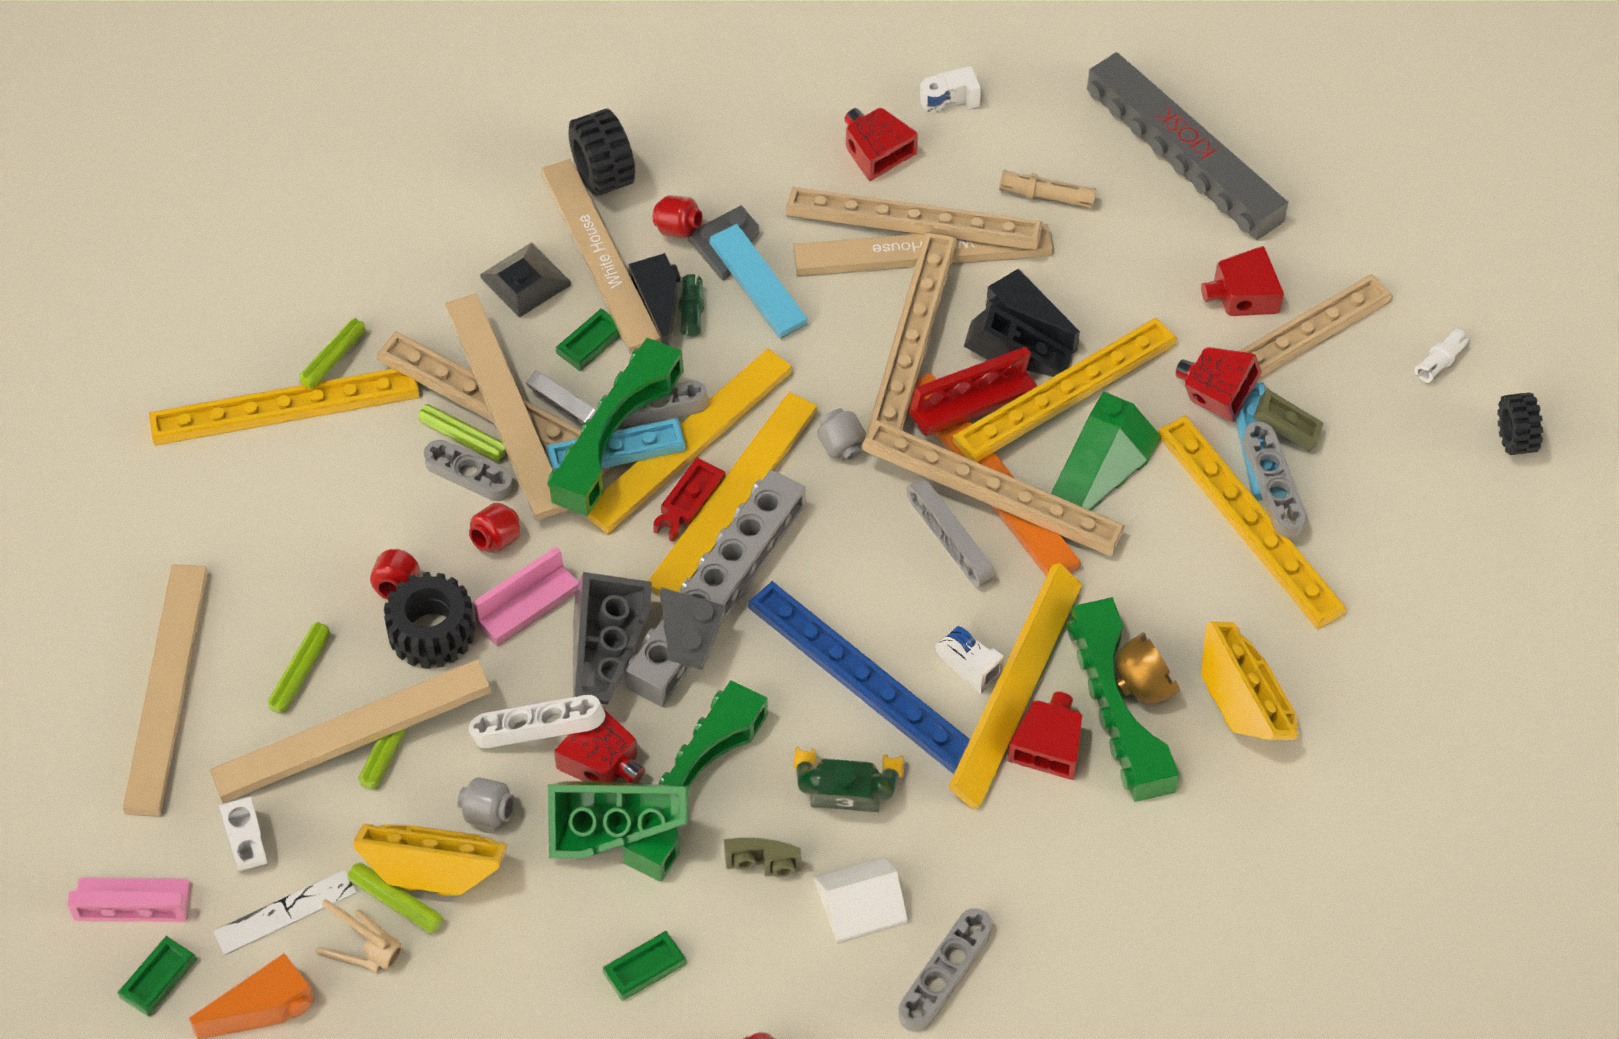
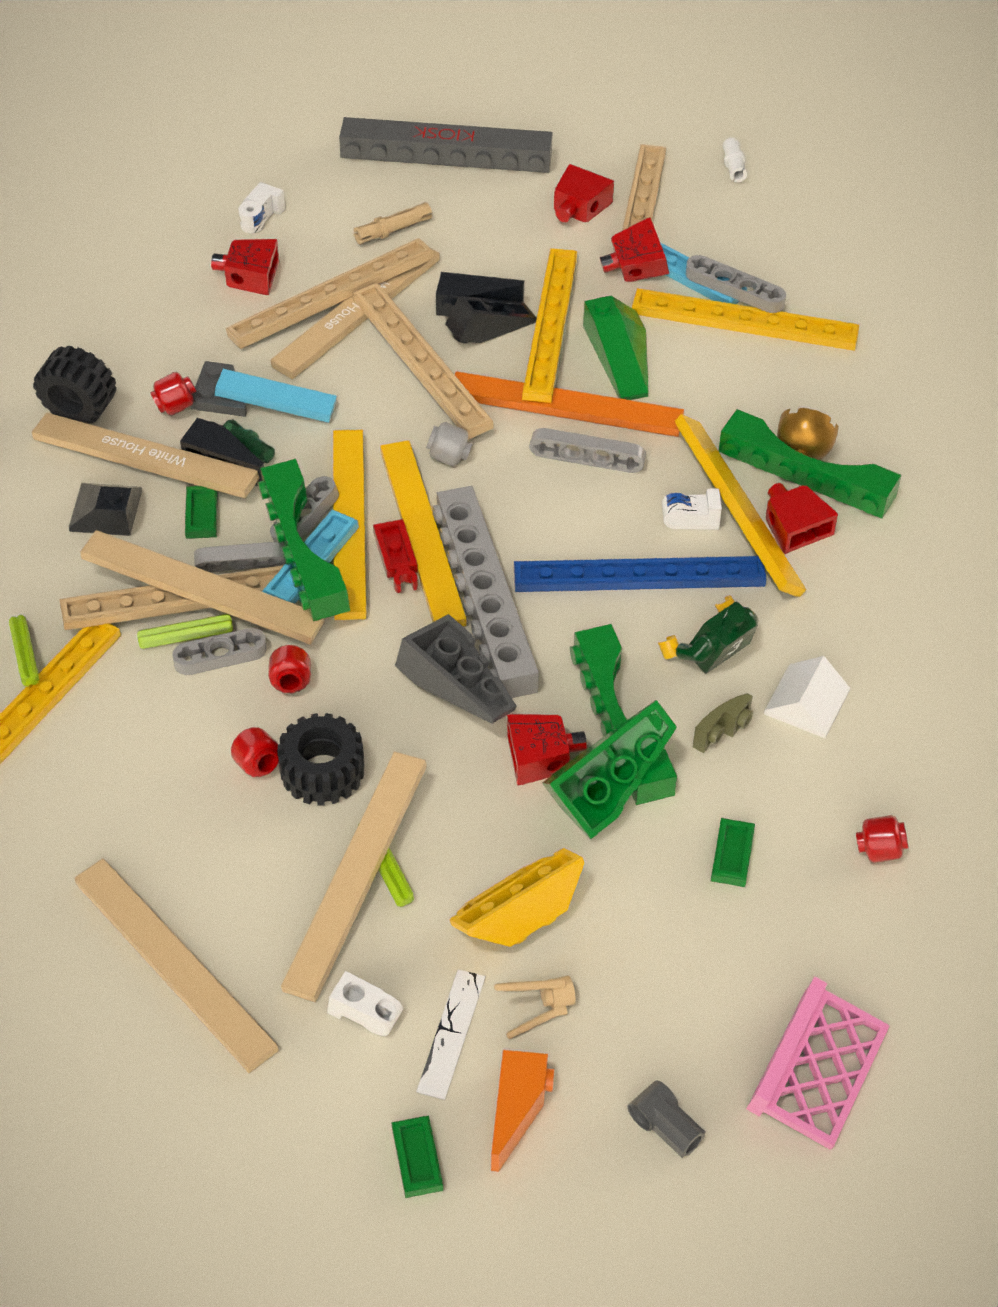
camera: 45 degrees left, 5 degrees down
(130, 899) = (331, 1123): bright pink panel -> none
(298, 667) = (259, 868): lime axle -> none
(395, 898) = (520, 953): lime axle -> none
(486, 802) = (508, 839): light grey head -> none
(524, 597) = (368, 695): bright pink panel -> none
(577, 716) = (485, 762): white beam -> none
(690, 626) = (510, 619): dark grey wing -> none
(948, 971) = (905, 696): light grey beam -> none
(974, 394) = (502, 362): red fence -> none
(993, 487) = (581, 404): tan tile -> none
(1245, 685) = (870, 405): yellow wedge -> none
(1288, 420) = (706, 246): olive plate -> none
(1520, 423) = (835, 153): black tyre -> none

